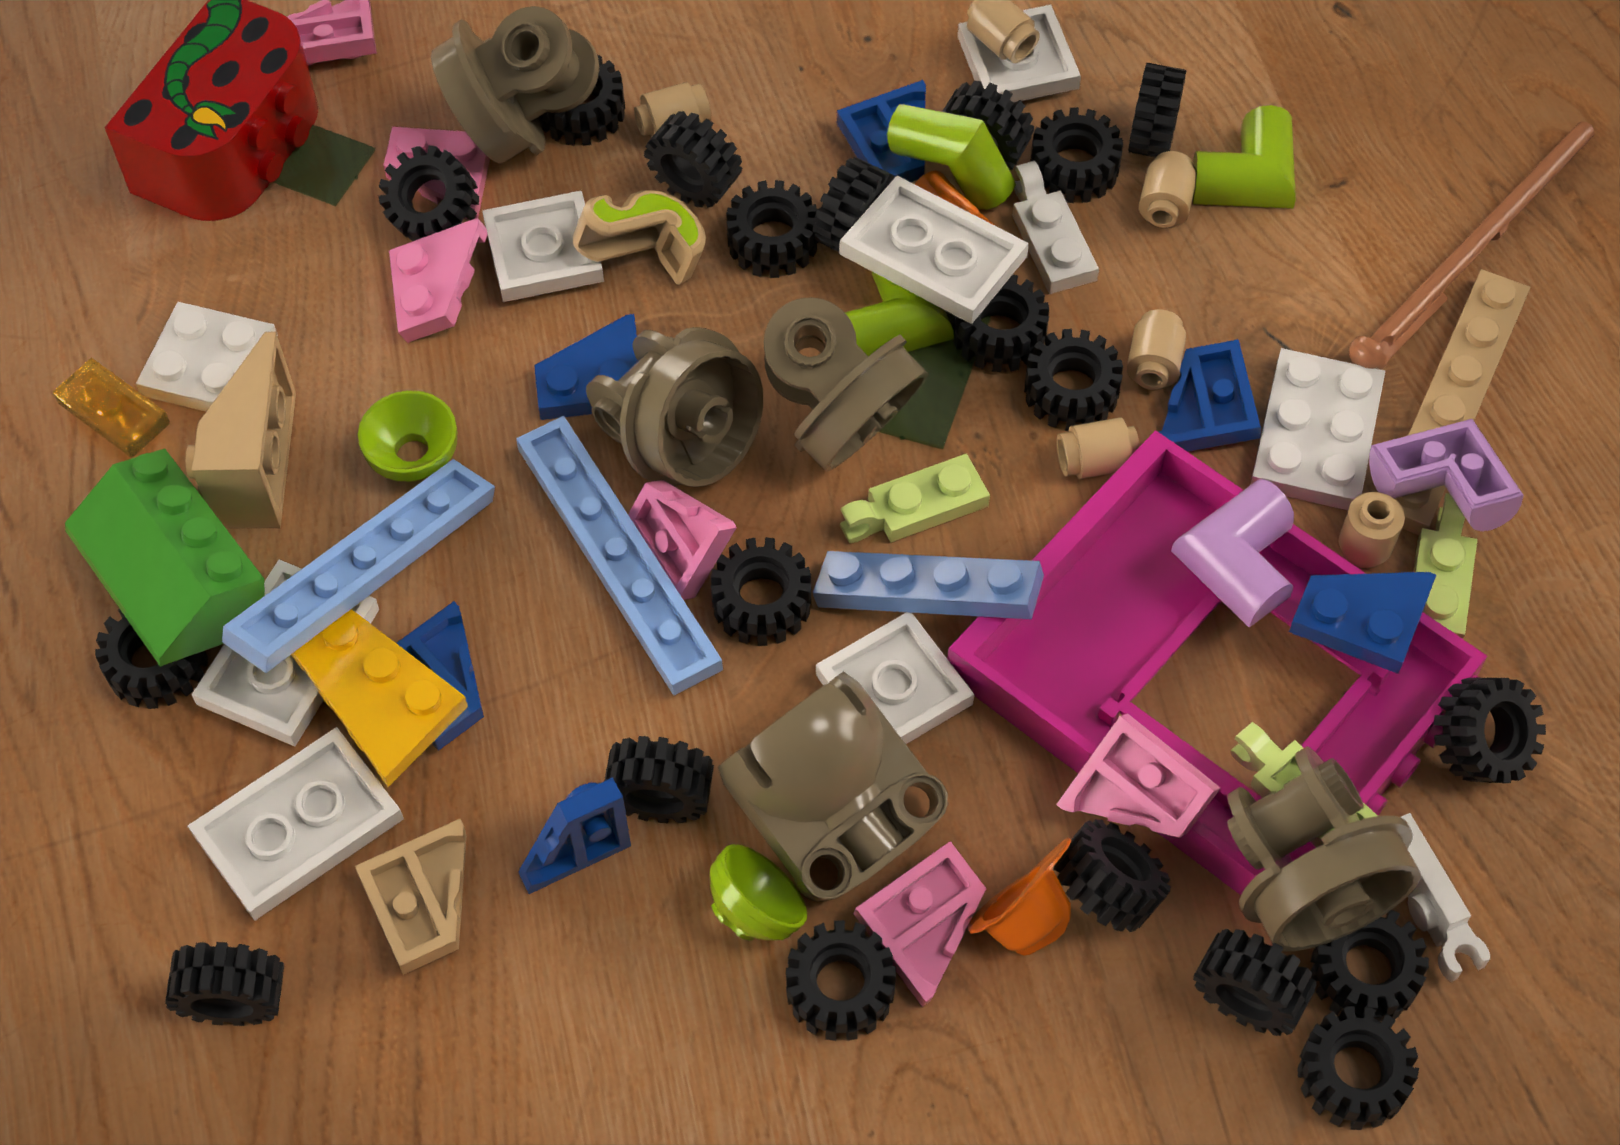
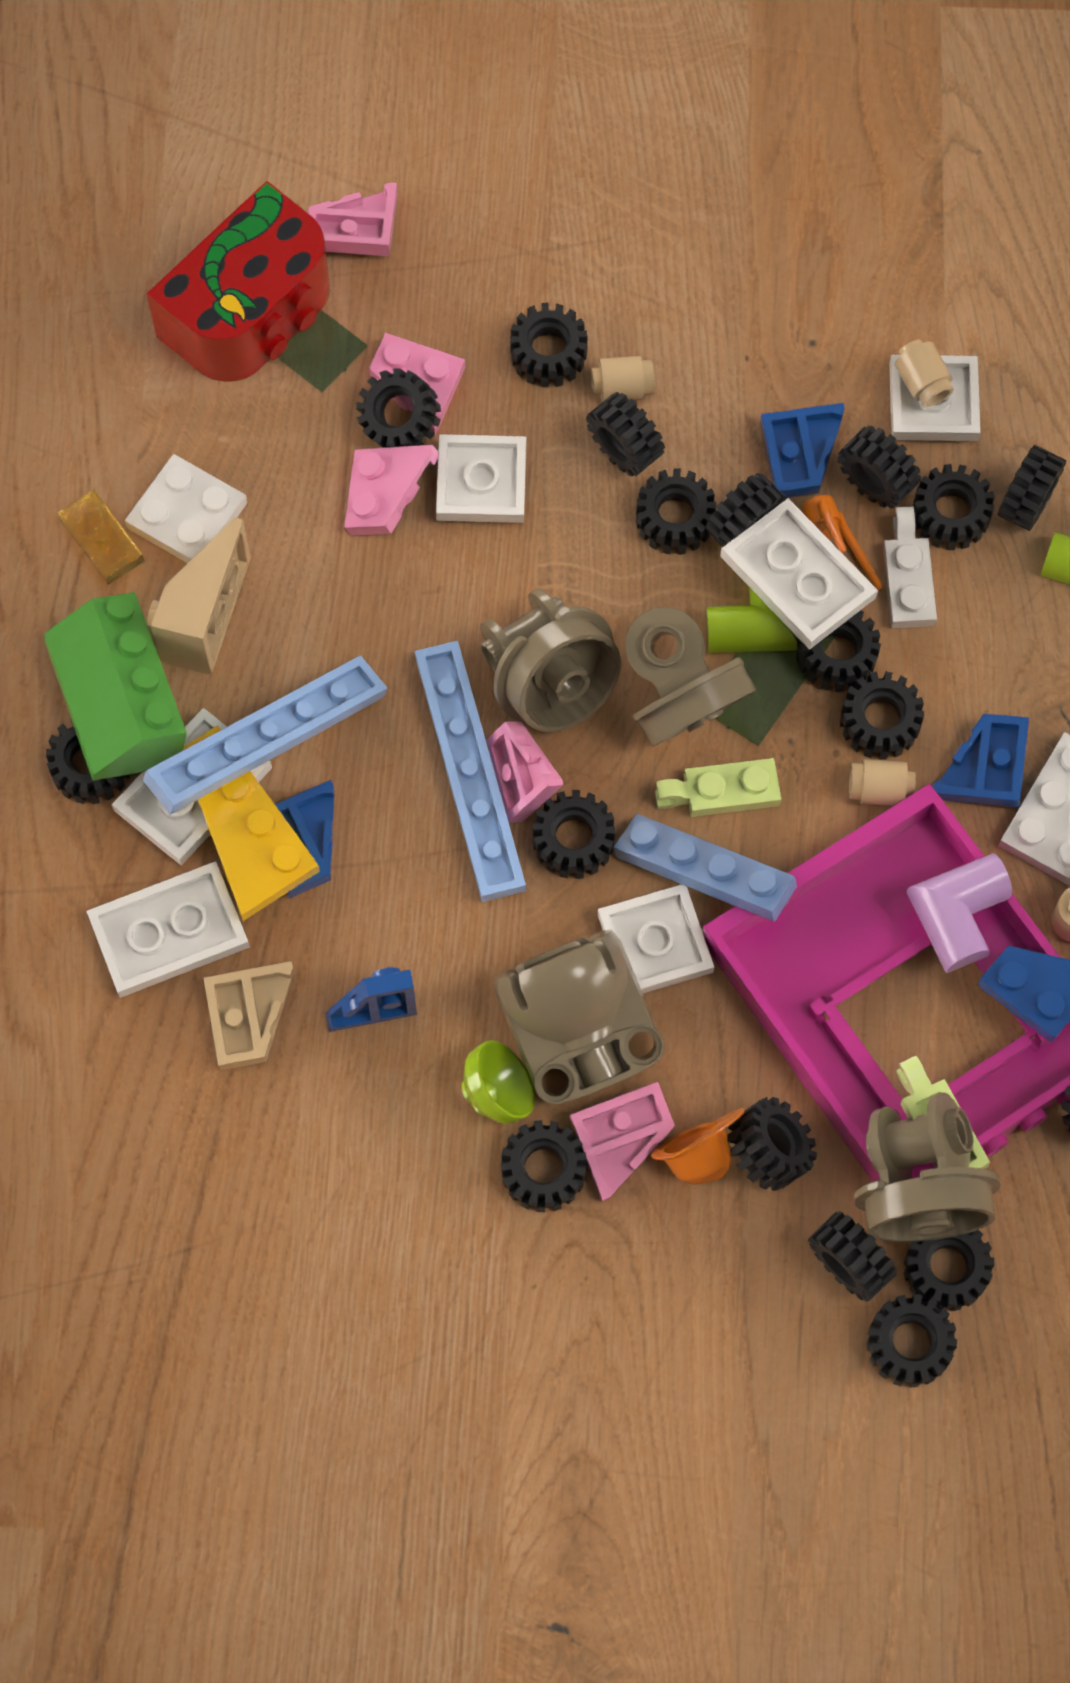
camera: 15 degrees right, 10 degrees up
(224, 984) = (87, 1045): black tyre -> none
(404, 419) = (329, 608): lime piece -> none
(514, 78) = (484, 324): dark tan piece -> none
(564, 376) = (492, 596): blue wing -> none
(642, 223) = (569, 481): tan animal -> none
(661, 778) = (449, 973): black tyre -> none
(955, 142) = (845, 482): lime brick -> none
(1140, 782) = (815, 1078): bright pink wing -> none
(1156, 350) = (959, 707): tan brick -> none
(1168, 190) = (1019, 561): tan brick -> none
(1441, 911) = (1015, 1229): white plate -> none

